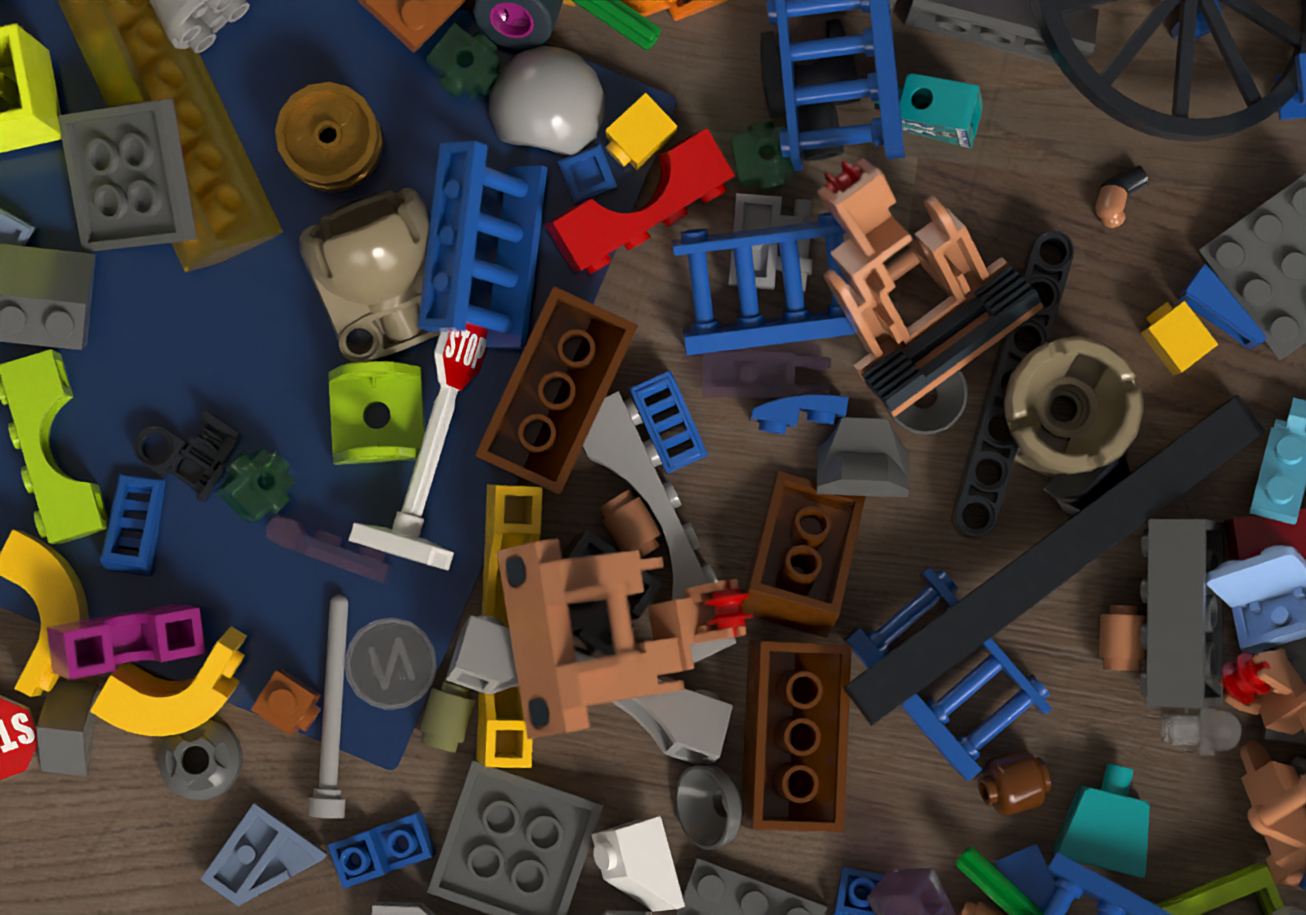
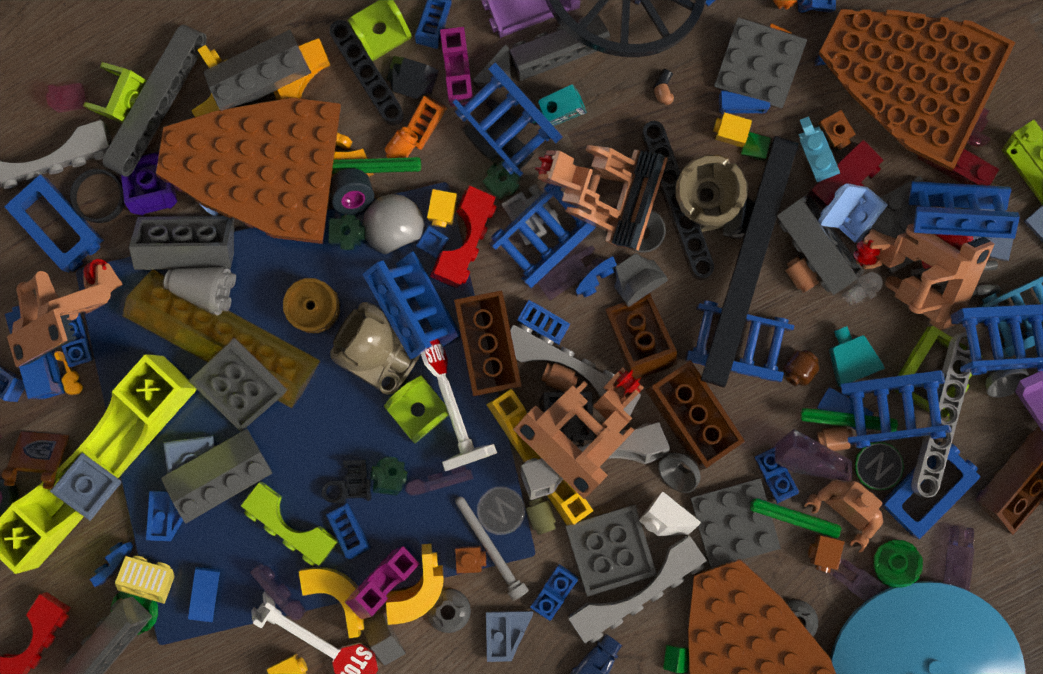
camera: 30 degrees left, 0 degrees up
(1196, 389) = (756, 146): none -> green slope

